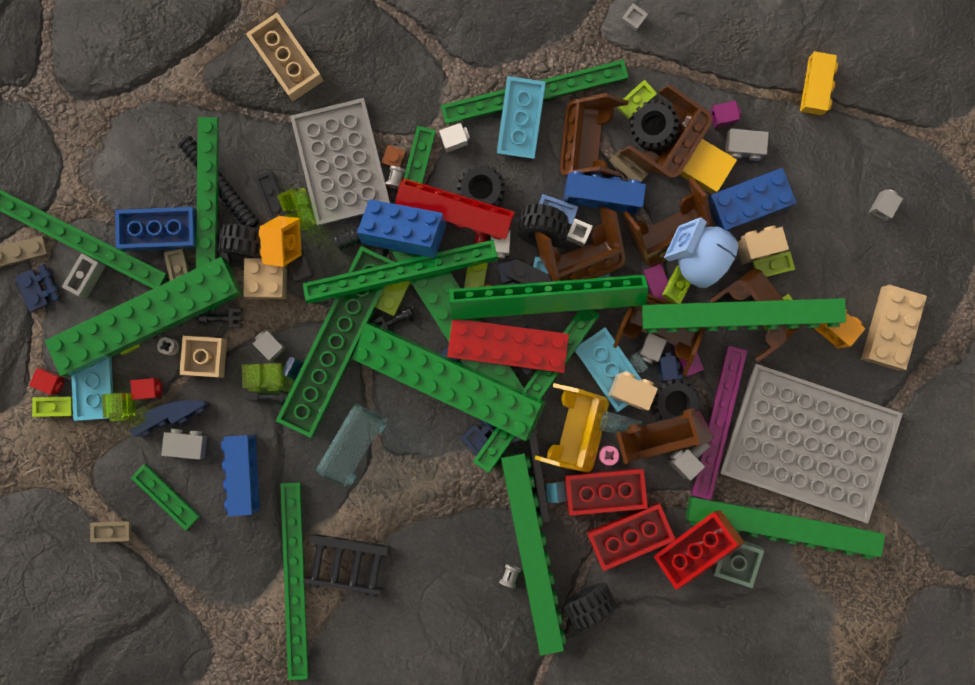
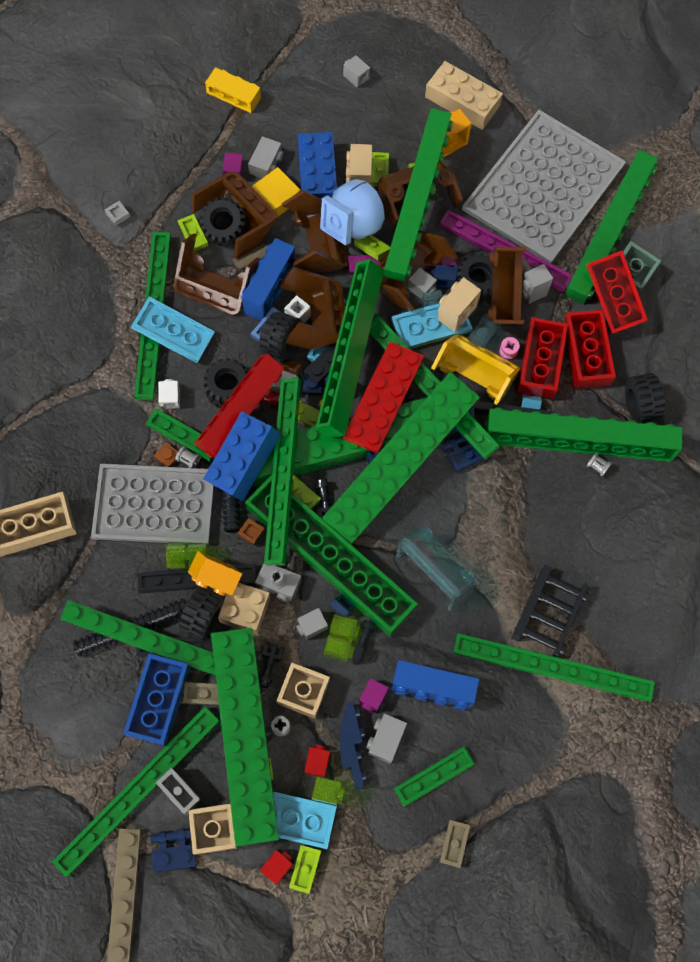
camera: 75 degrees left, 15 degrees down
(58, 313) = (211, 829): none -> tan brick
(219, 421) = (373, 696): none -> magenta brick
(297, 307) = (278, 582): none -> light grey brick
(341, 261) = (251, 531): none -> dark orange plate
(518, 245) = (291, 367): none -> dark orange plate

